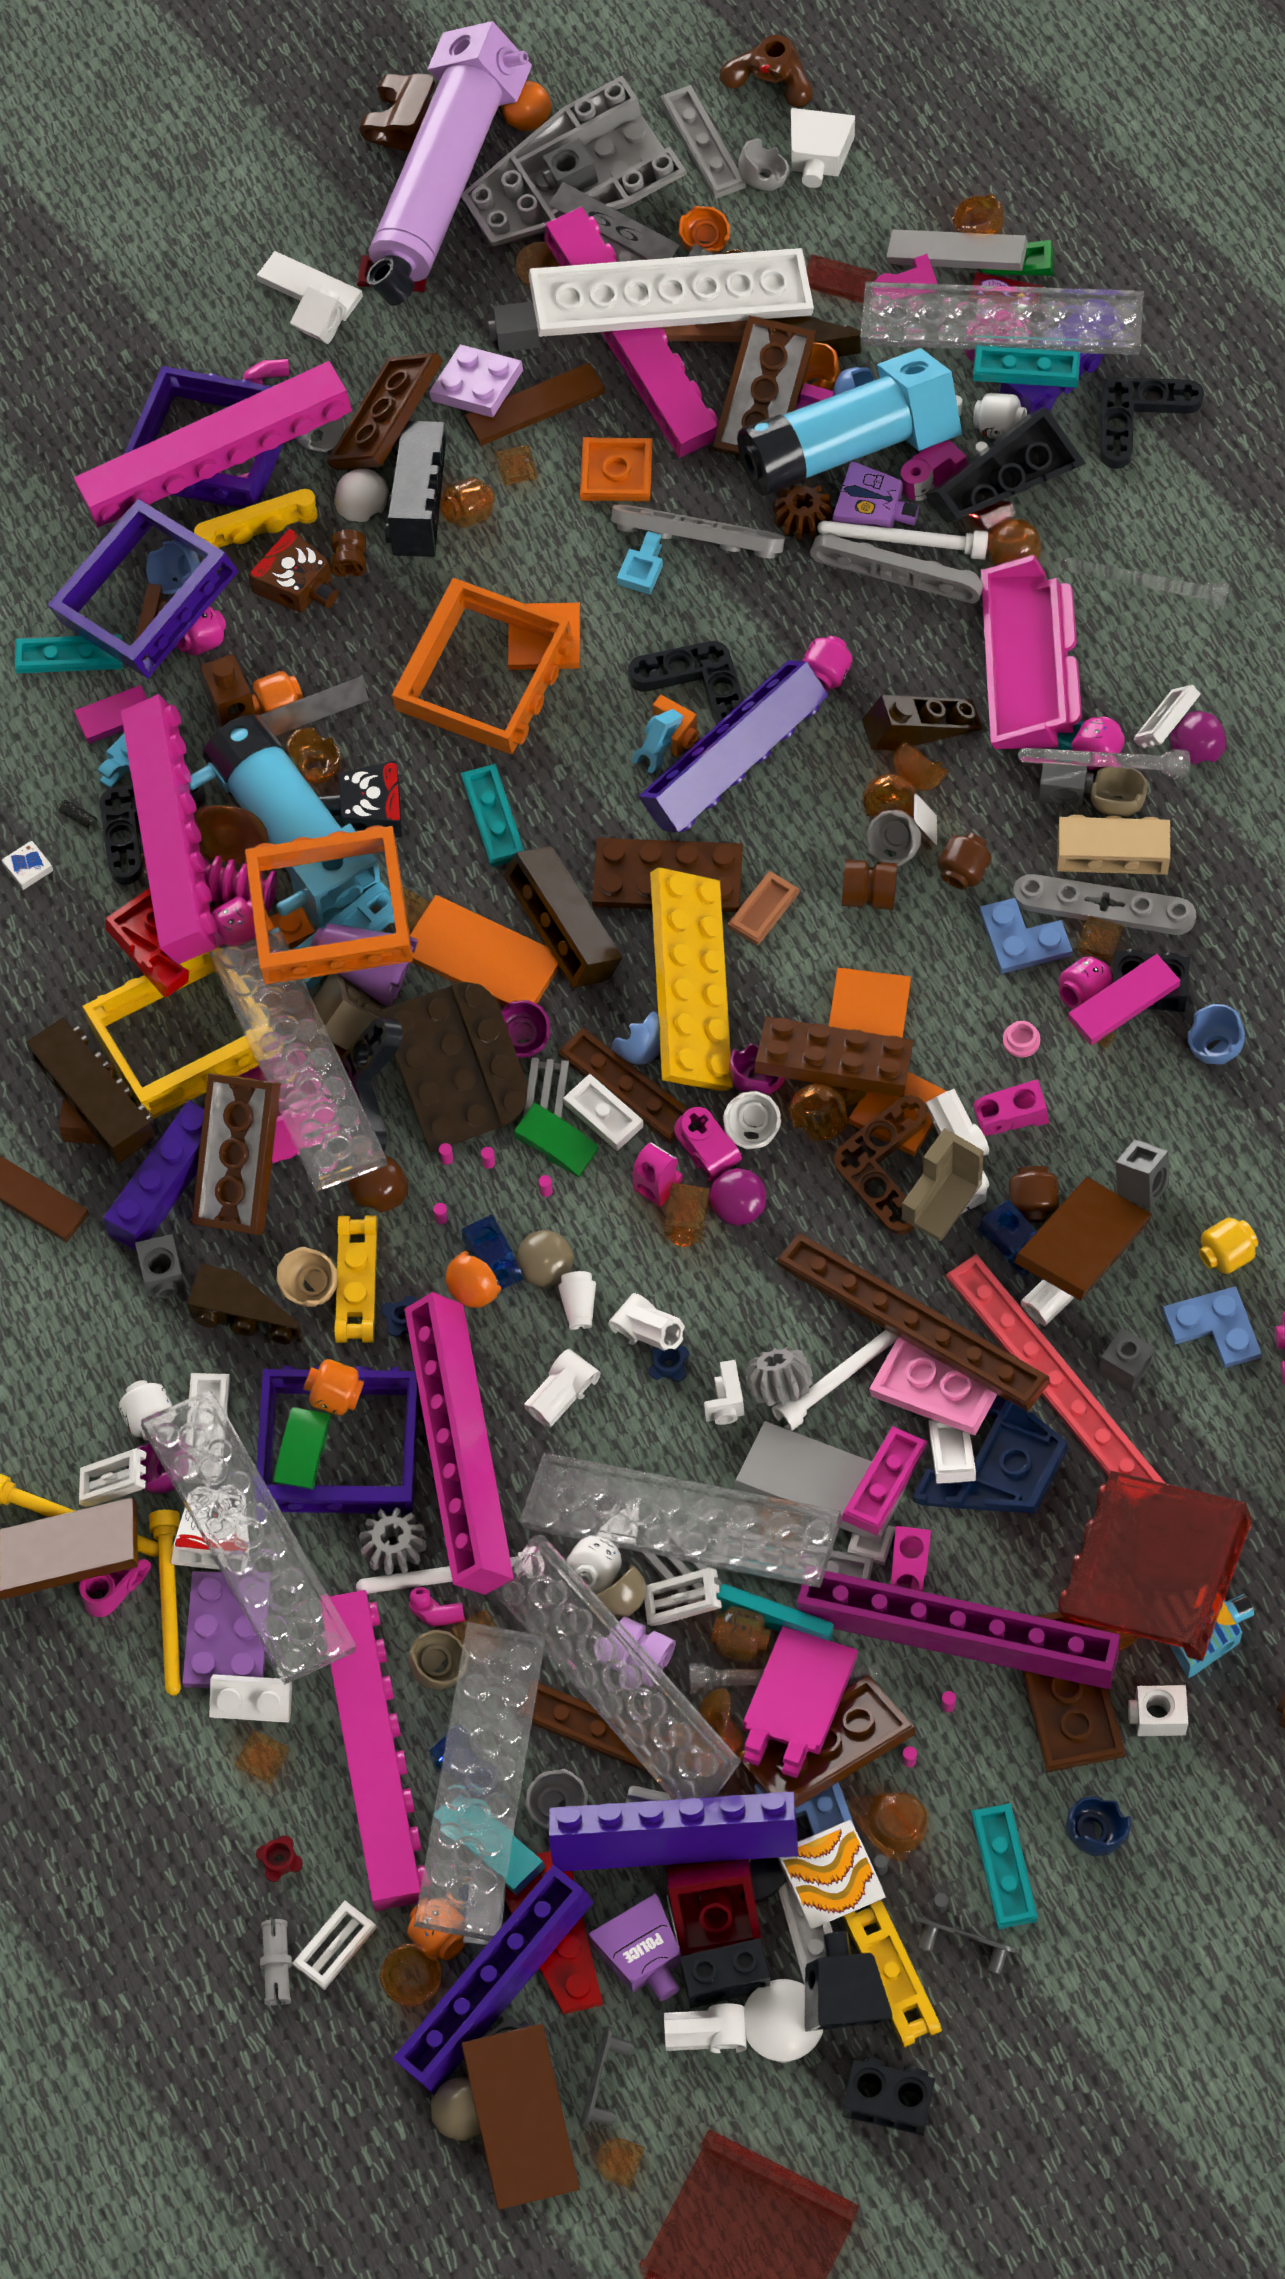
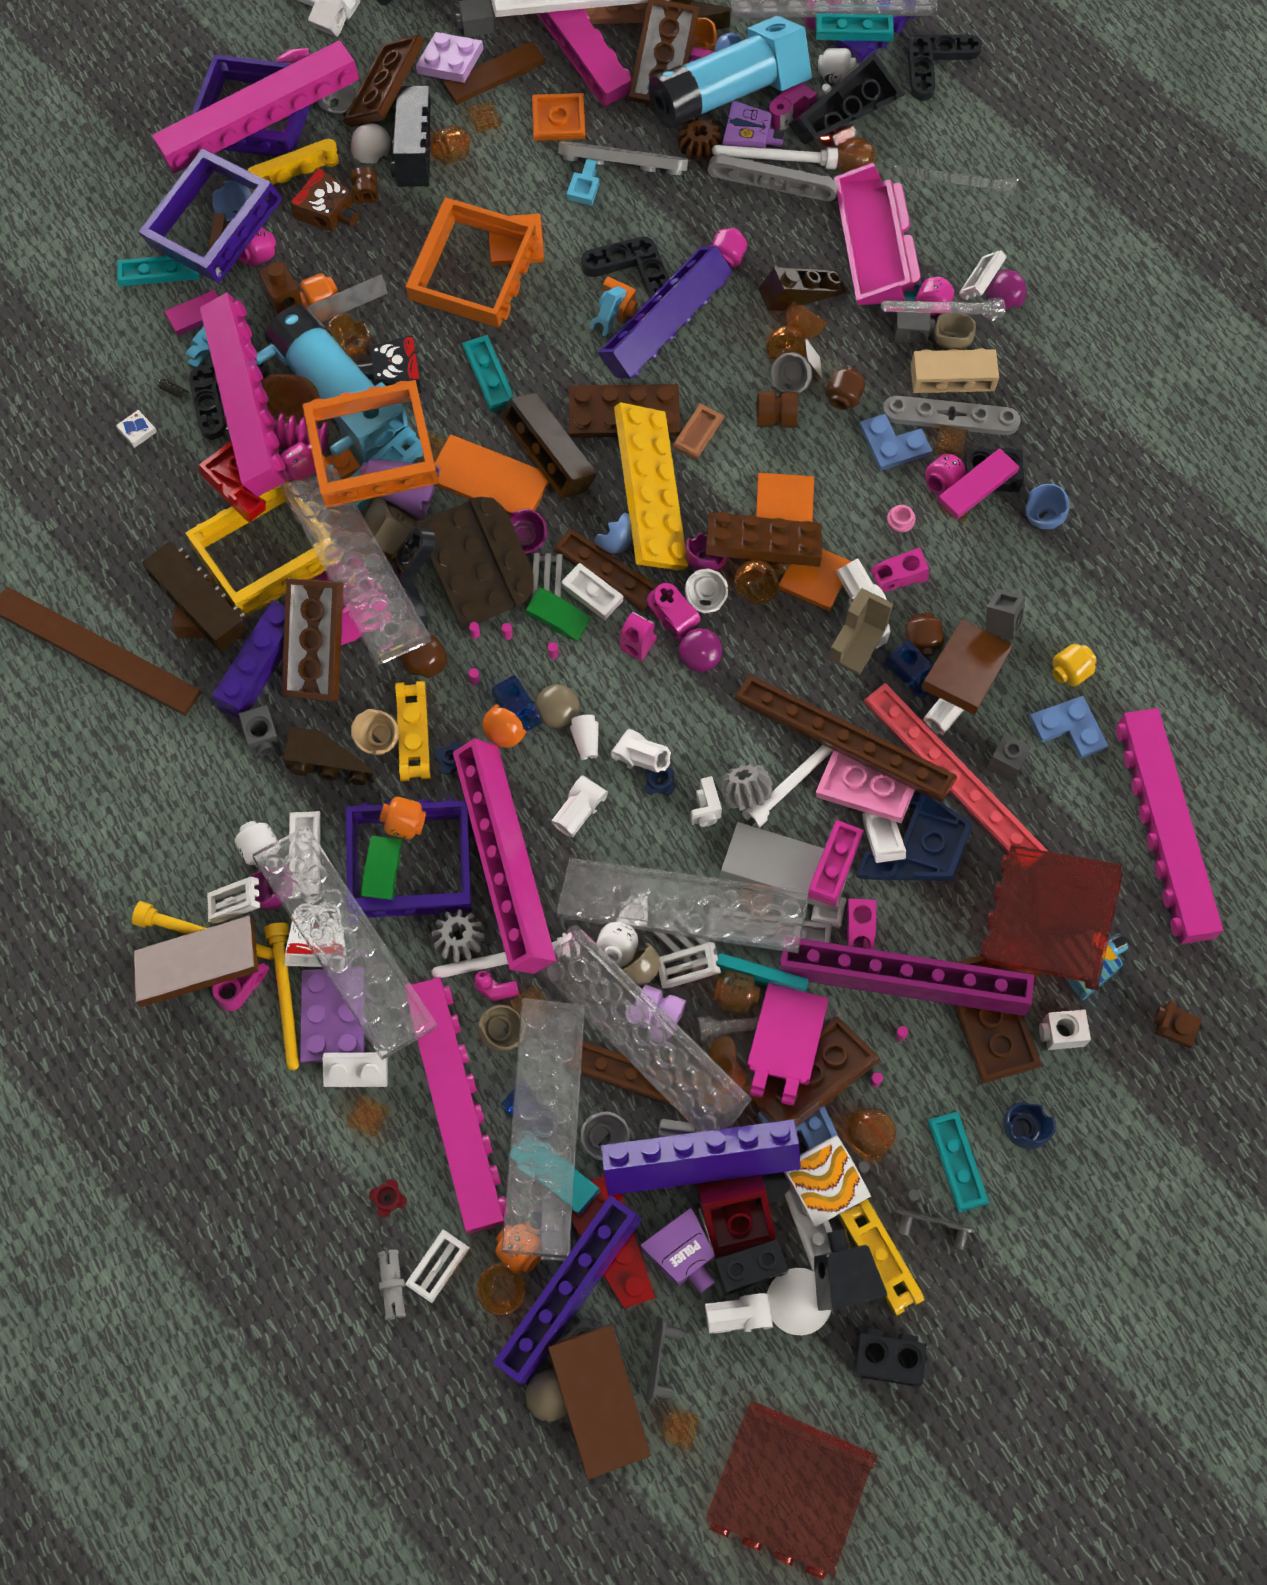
camera: 10 degrees left, 5 degrees up
(686, 1214) = (663, 666): clear orange brick -> none
(869, 1168) = (799, 623): reddish brown beam -> none

